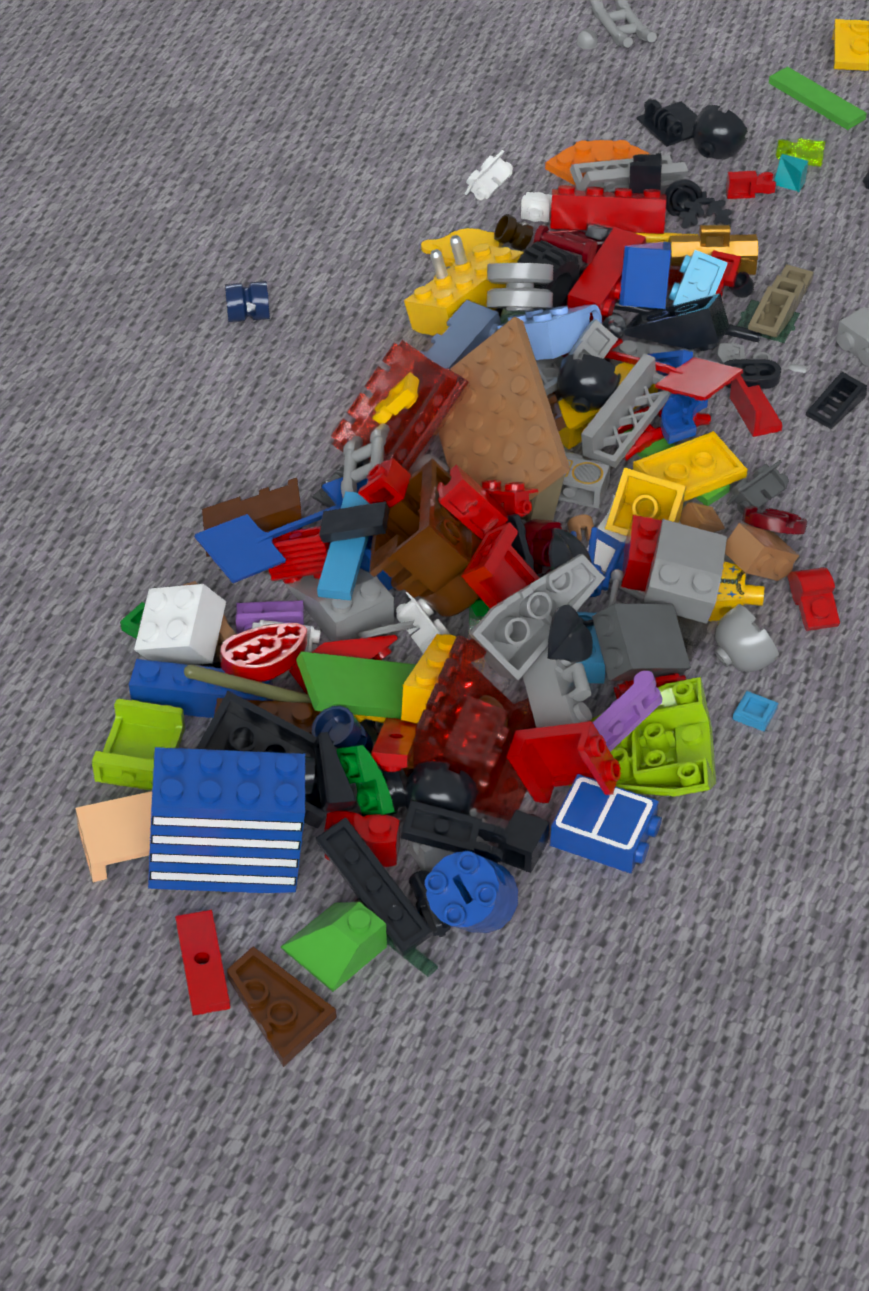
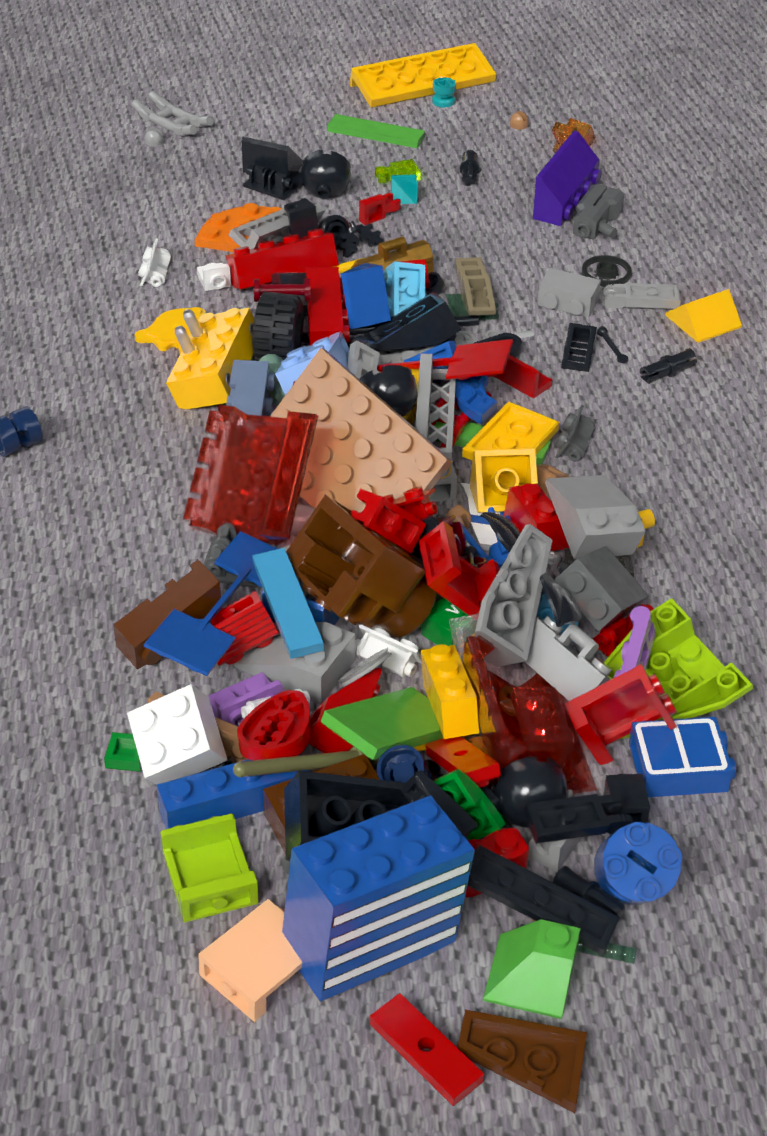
camera: 30 degrees left, 5 degrees down
(354, 522) = (287, 577): black tile -> none
(355, 453) = (259, 527): light grey piece -> none
(386, 483) = (286, 528): red brick -> none
(400, 396) = (240, 459): yellow plate -> none
(513, 232) = (217, 302): dark brown wheel -> none
(520, 283) = (278, 330): light grey wheel -> none
(673, 97) = (270, 155): none -> black slope
(743, 642) = (669, 557): light grey cylinder -> none
(755, 711) = (716, 613): dark azure tile -> none
(760, 552) = (632, 482): medium nougat brick -> none
(775, 520) = (612, 454): dark red tile -> none
(814, 594) = (688, 499): red brick -> none

